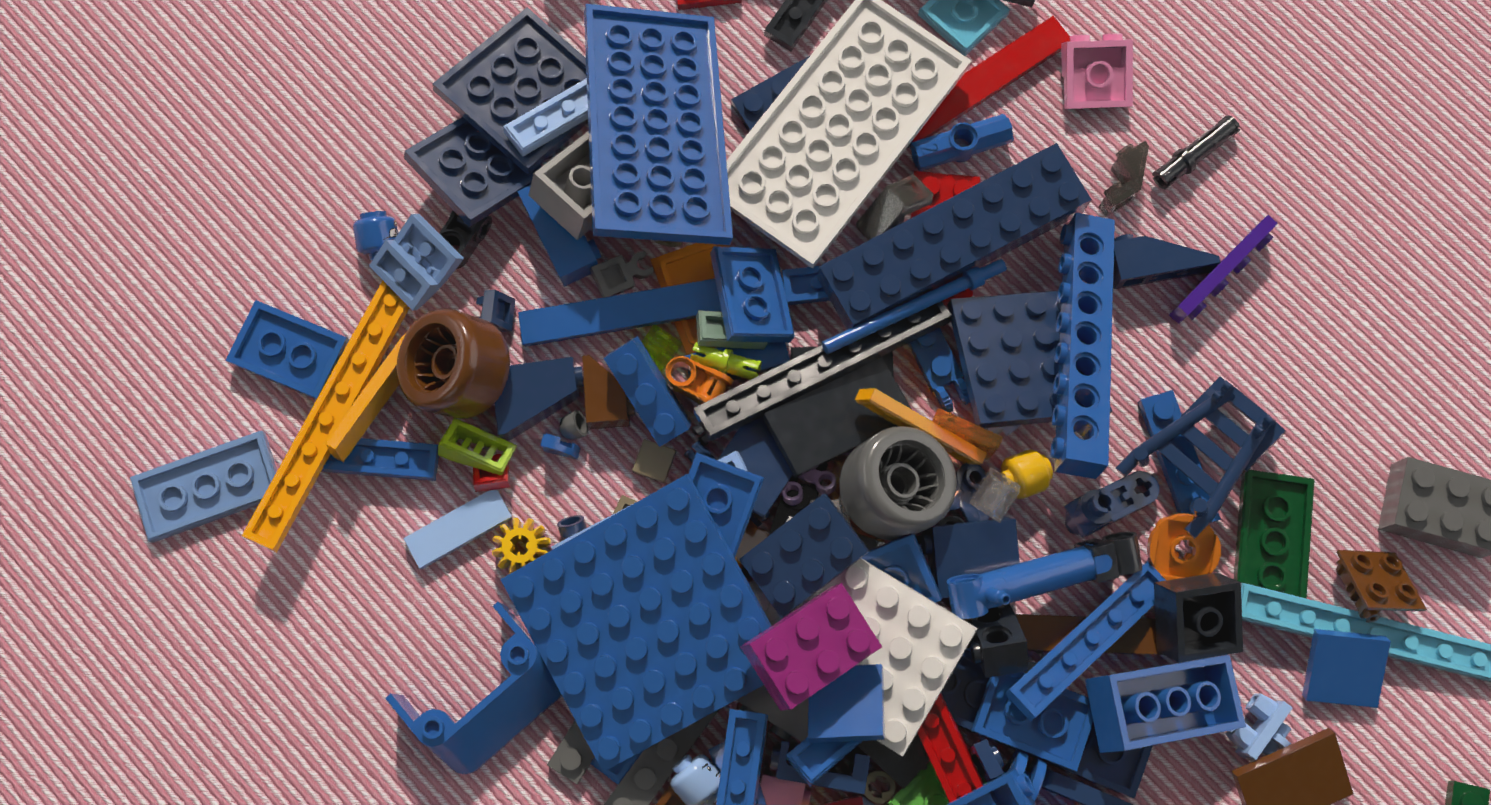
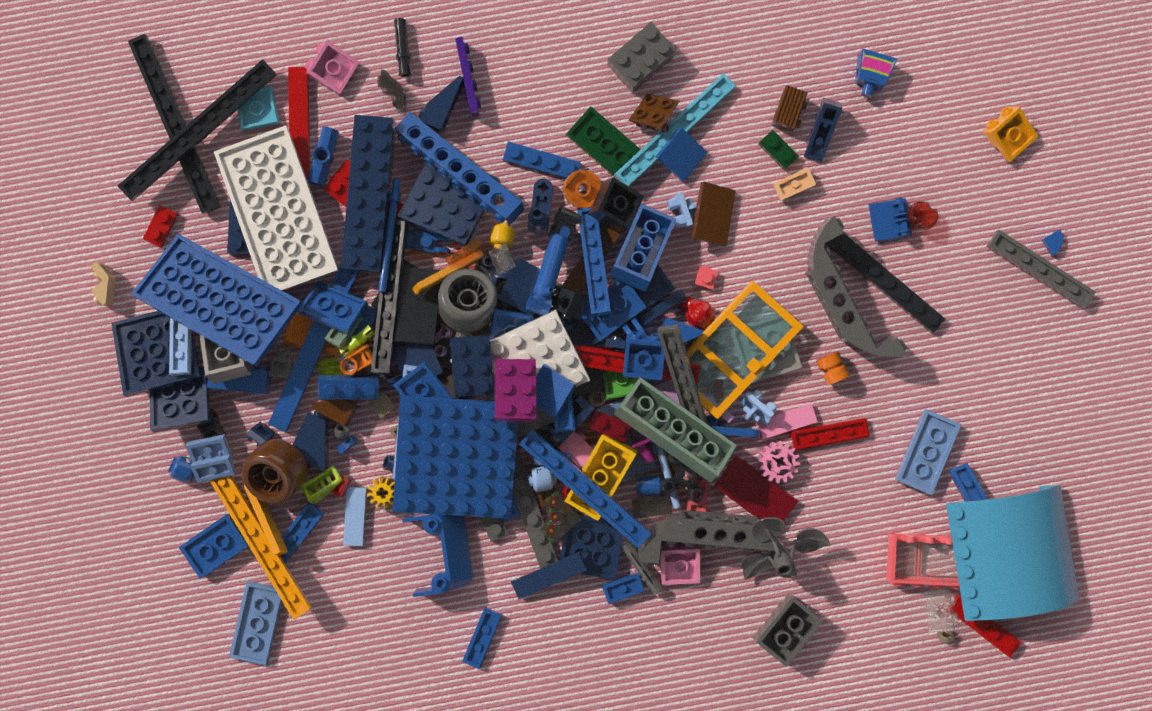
camera: 60 degrees left, 10 degrees up
(893, 205) = (333, 212): clear smoke slope -> none
(1252, 447) = (557, 126): dark blue hand -> none

